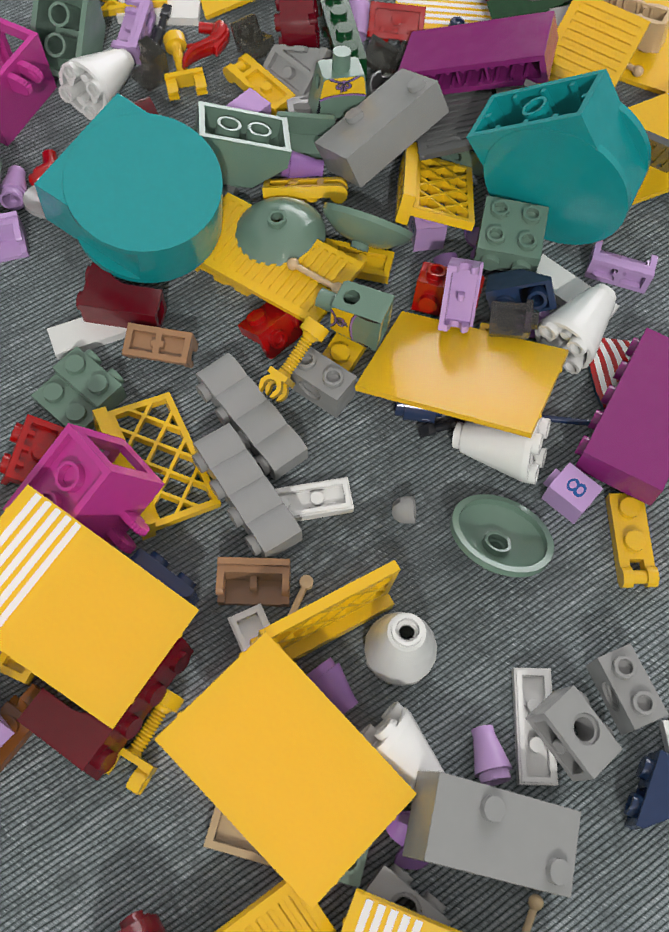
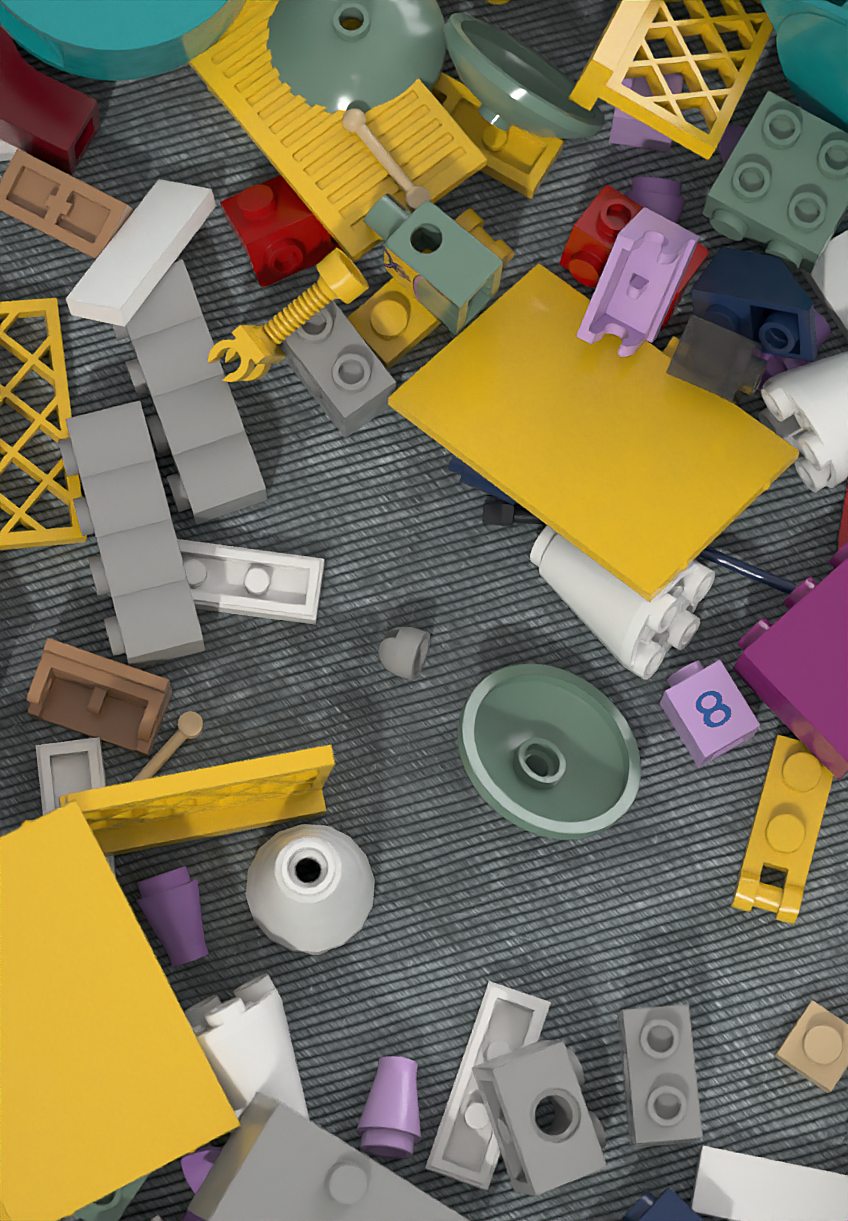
camera: 15 degrees right, 10 degrees up
(206, 355) = (141, 252): none -> white tile

